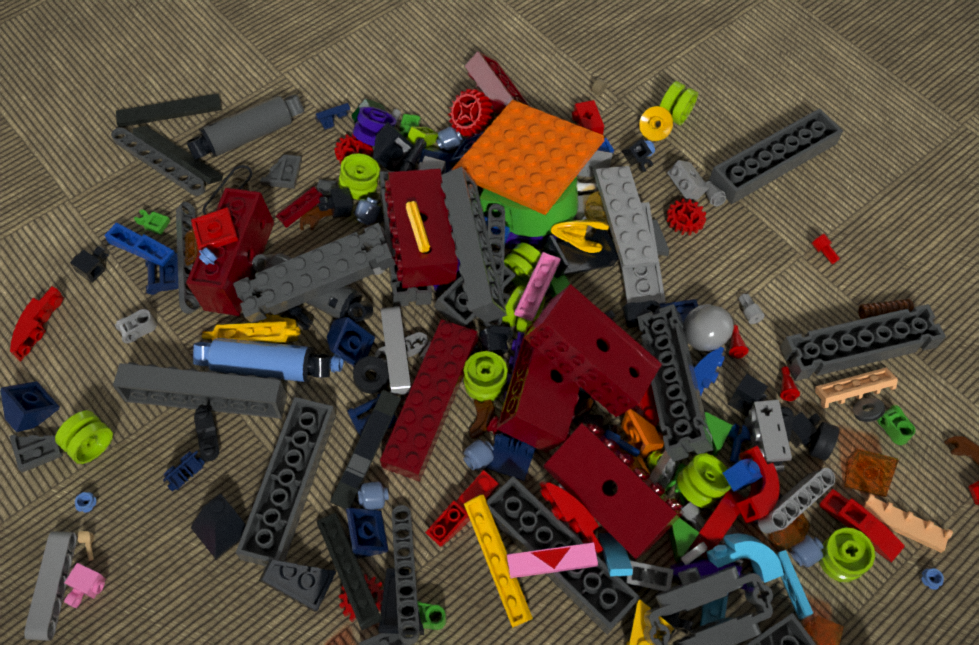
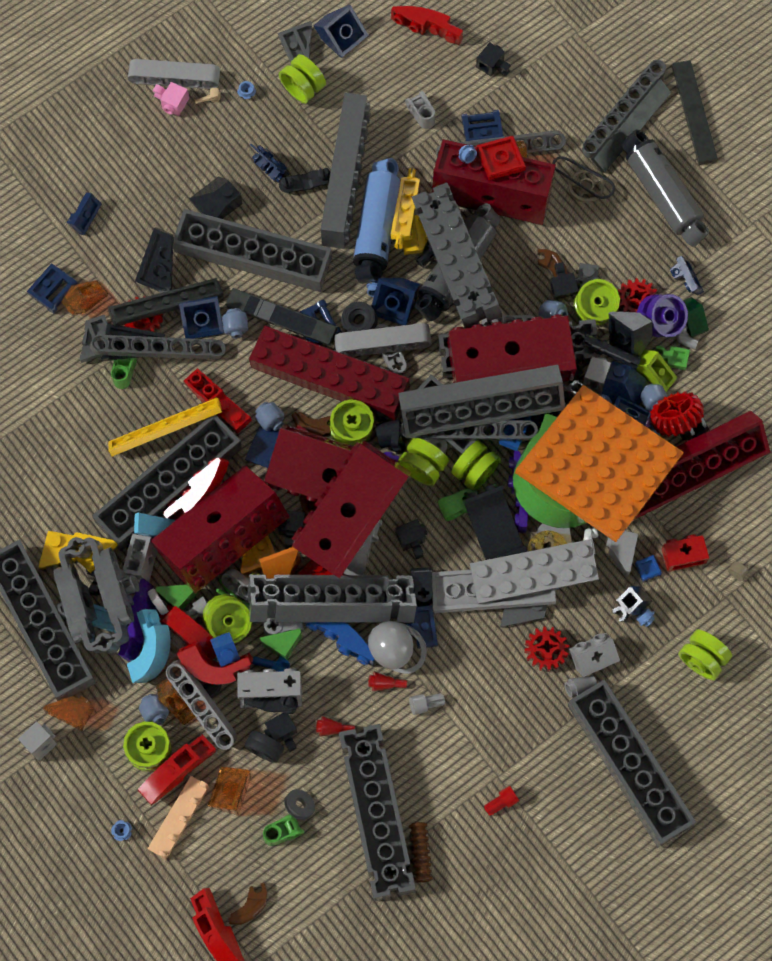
camera: 95 degrees right, 10 degrees up
(139, 245) = (513, 101): blue slope -> none
(155, 222) = (544, 112): bright green plate -> none
(283, 173) = (608, 231): dark grey wing -> none
(299, 207) = (560, 248): dark red hinge -> none
(417, 225) = (496, 343): yellow axle -> none
(537, 286) = (437, 467): bright pink tile -> none
(552, 560) = (155, 468): bright pink tile -> none
(575, 231) = (514, 526): yellow animal -> none
(623, 445) = (276, 539): blue bar -> none
(648, 123) = (678, 628): yellow dish -> none
(748, 392) = (316, 677): black brick -> none
(794, 587) = (124, 692): medium azure tile -> none
(856, 386) = (329, 799): light nougat hinge -> none

